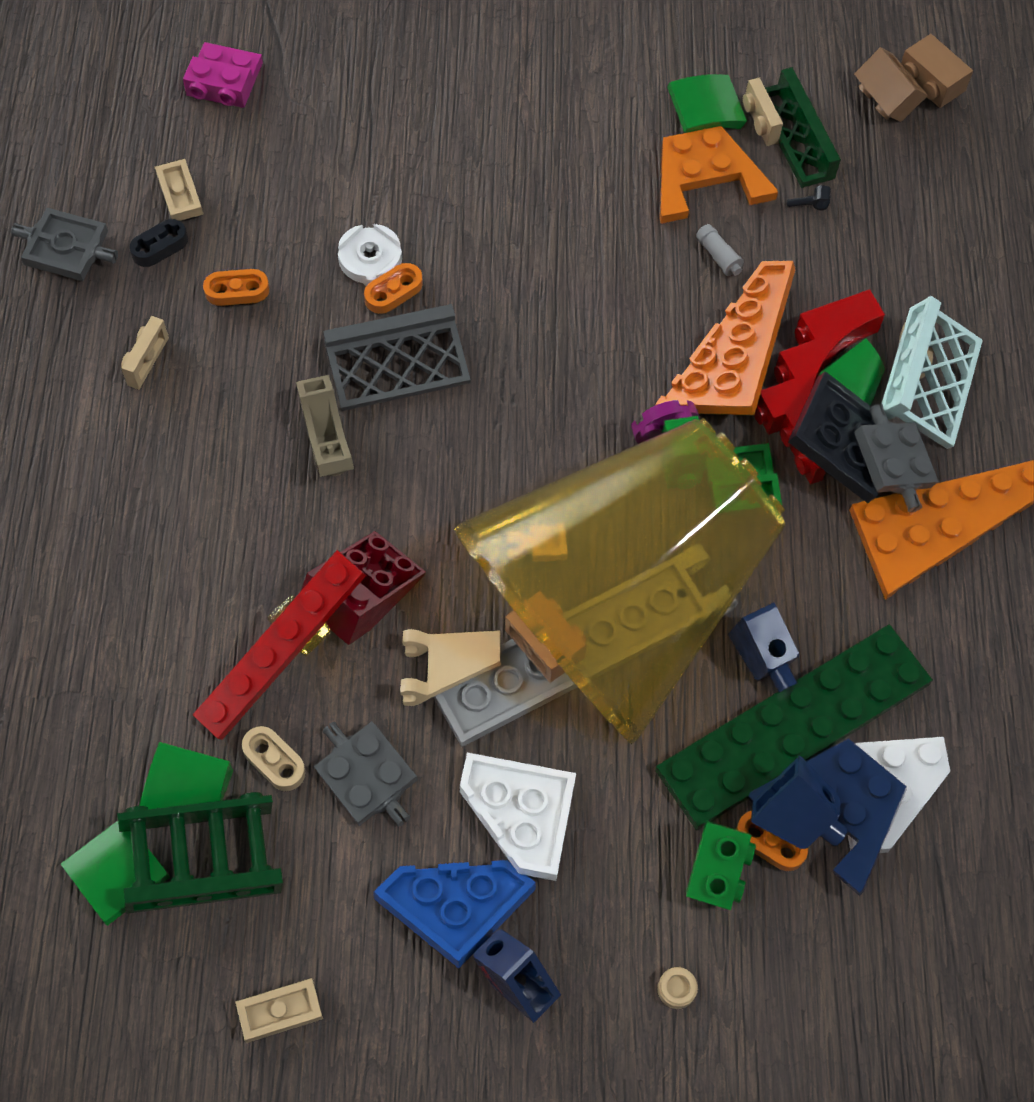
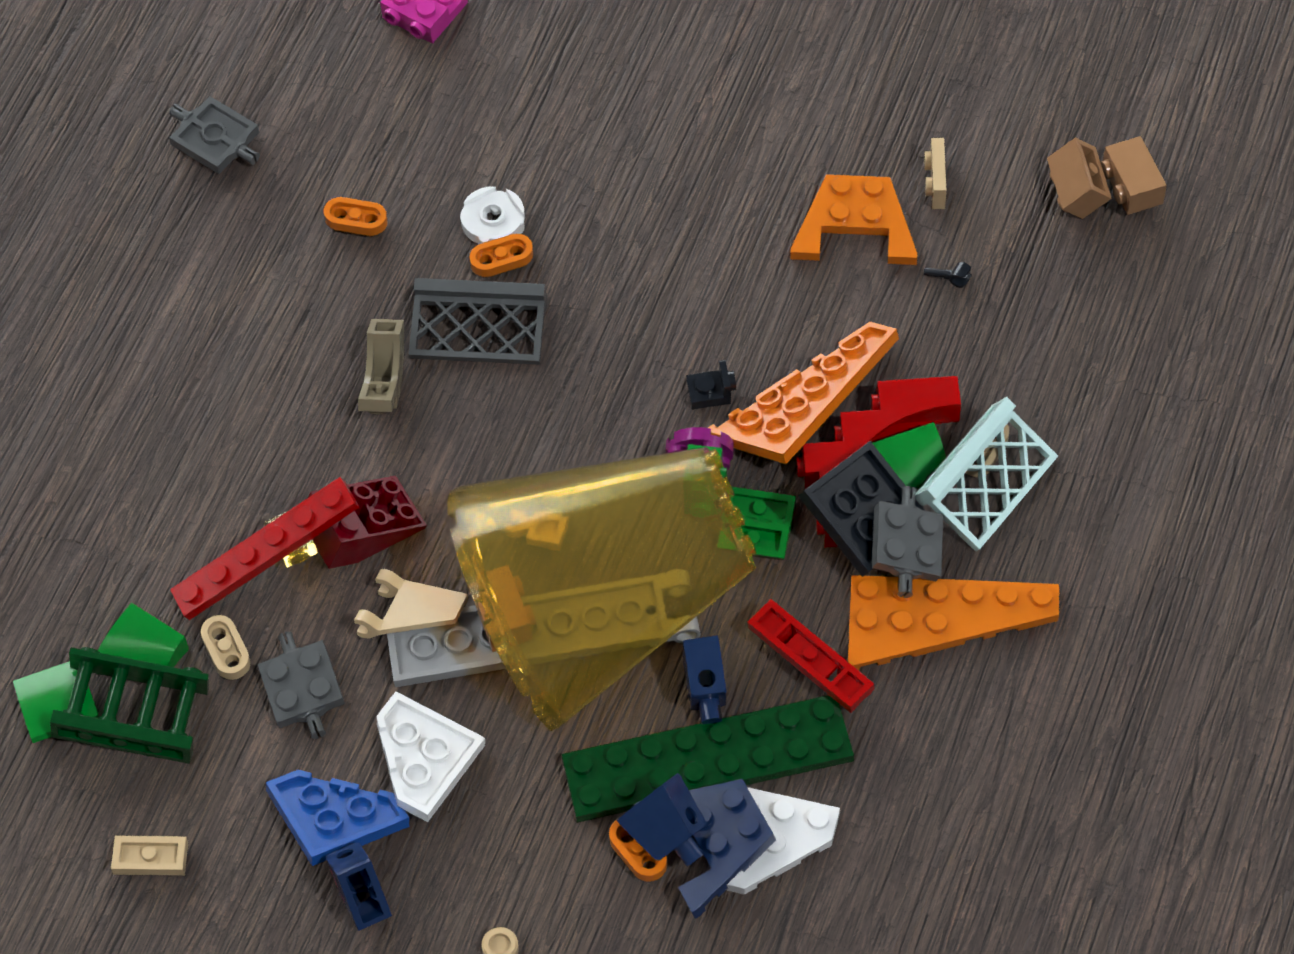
camera: 25 degrees right, 5 degrees down
(145, 352) = (248, 255): tan plate -> none
(158, 242) = (301, 155): black beam -> none
(179, 190) = (337, 110): tan plate -> none
(644, 360) = (711, 387): none -> black bracket
(706, 102) = (886, 150): green slope -> none
(719, 865) = (576, 851): green brick -> none
(720, 250) = (833, 300): light grey piece -> none
(810, 132) = (977, 196): dark green fence -> none
(855, 594) = (810, 655): none -> red hinge

